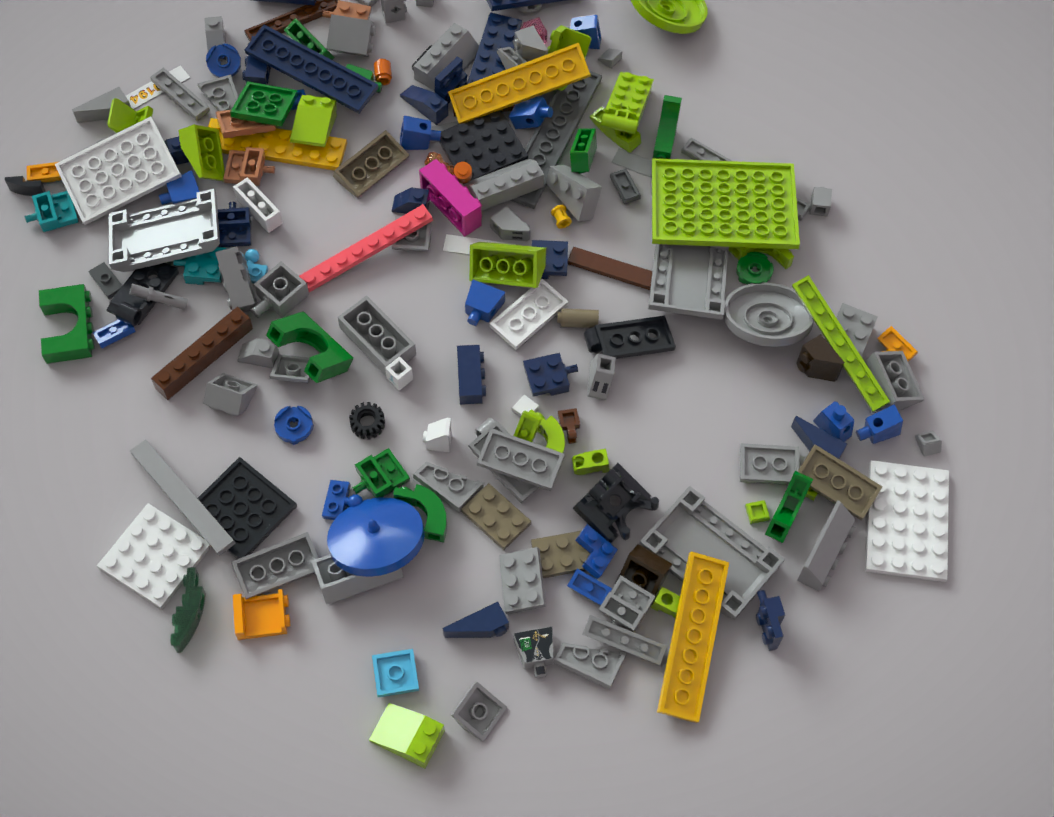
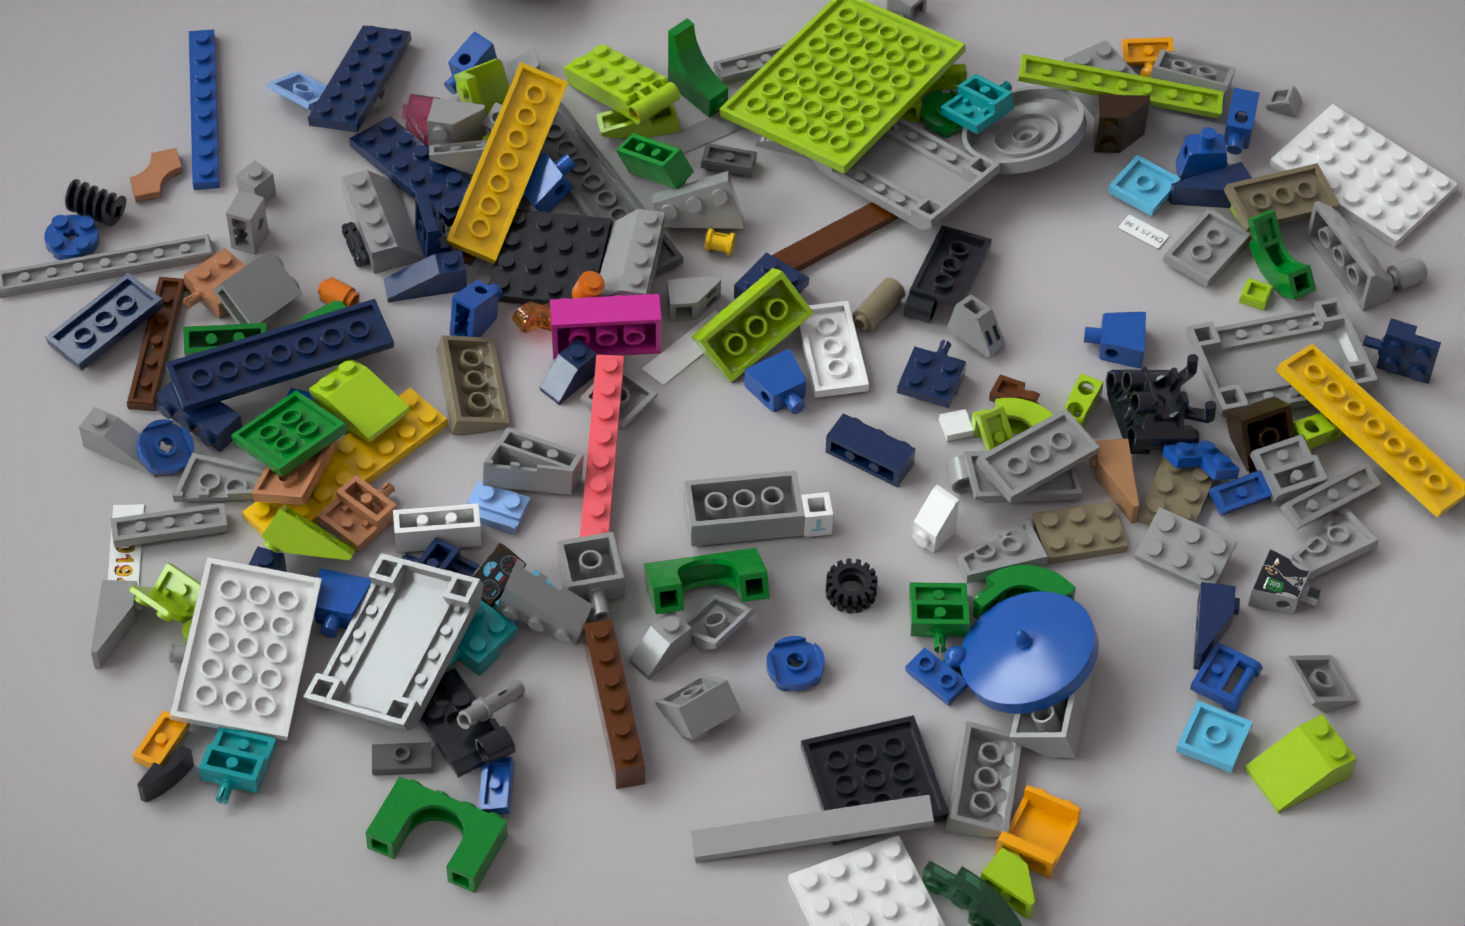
camera: 55 degrees left, 10 degrees down
(215, 619) = (1011, 879): none -> lime slope
(251, 247) = (495, 573): none -> slope
(298, 224) = (499, 507): none -> light blue plate
(330, 220) = (532, 464): none -> light grey wedge
(445, 648) = (1217, 672): none -> blue plate
(555, 507) = (1116, 475): none -> medium nougat slope
(657, 456) = (1120, 338): none -> blue torso
(756, 423) = (1143, 231): none -> white sticker
(765, 280) = (979, 103): none -> teal plate
(787, 402) = (1143, 185): none -> medium azure plate
(843, 588) = (1407, 273): none -> light grey brick

